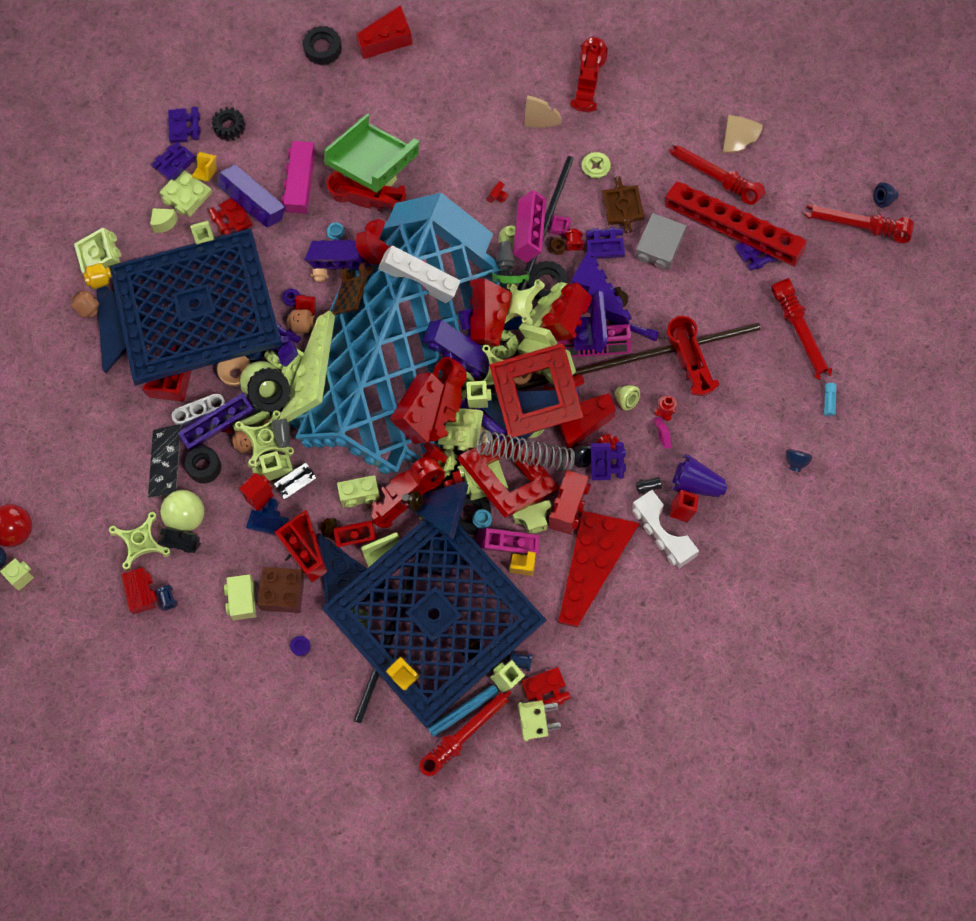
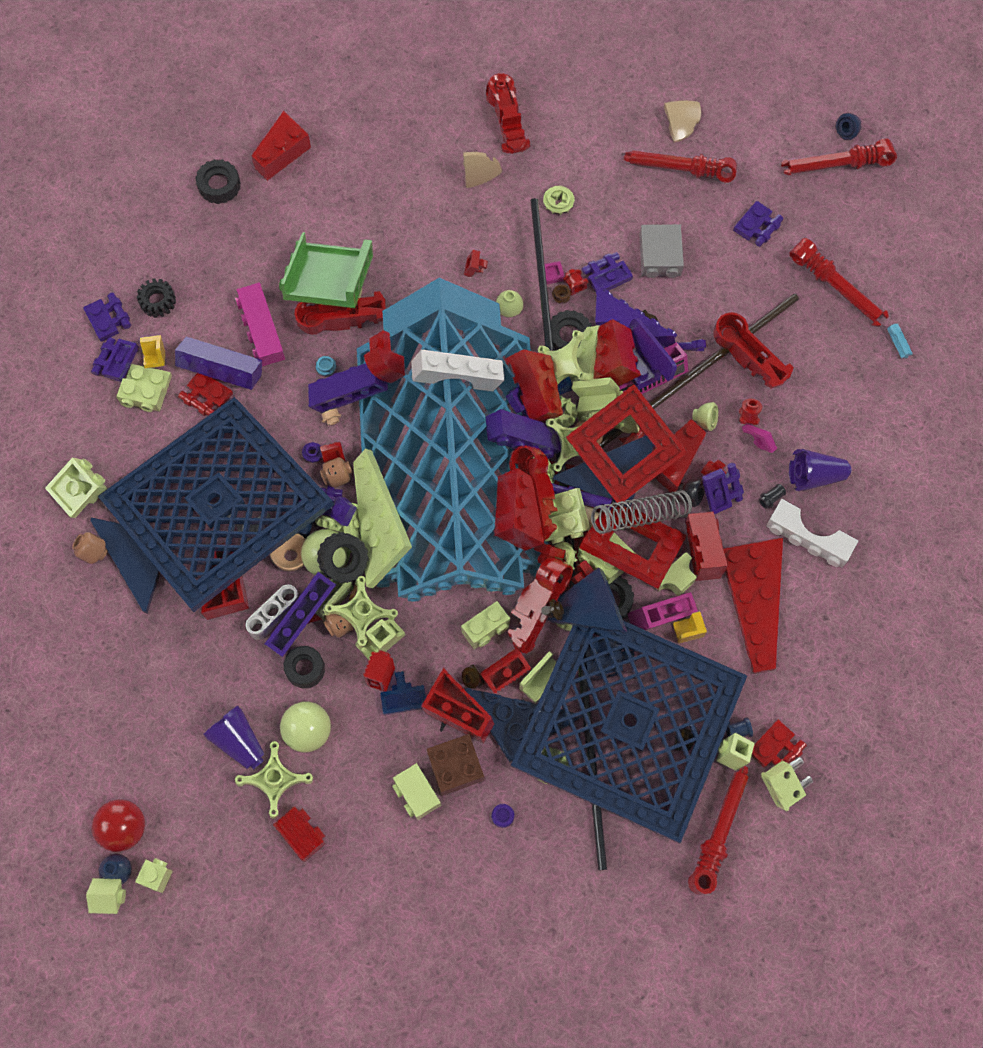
camera: 30 degrees left, 0 degrees up
(96, 276) = (89, 512): yellow head -> none
(124, 497) = (236, 738): none -> dark purple cone
(163, 220) = (133, 424): yellowish green brick -> none
(164, 461) = (259, 681): black sticker -> none
(166, 598) = (334, 828): dark blue bush -> none
(187, 542) = (308, 761): black hinge -> none
(202, 232) = (184, 421): yellowish green brick -> none
(281, 432) = (377, 596): dark grey cone -> none
(295, 480) = (411, 642): hinge -> none
(351, 289) = (380, 419): reddish brown flag -> none
(402, 674) = (632, 797): yellow panel -> none
(463, 710) = (706, 807): dark azure axle -> none
(478, 394) = (567, 473): yellowish green brick -> none
(482, 519) = (629, 599): medium azure plate -> none
(505, 256) = (522, 324): dark grey cone -> none
(510, 276) = (537, 340): bright green tile -> none
(529, 226) = (528, 283): dark pink brick -> none
(623, 205) = (605, 228): reddish brown plate -> none
(684, 506) = (820, 502): red brick -> none
(735, 223) = (726, 204): red brick -> none
(797, 459) = (901, 411): dark blue brick -> none

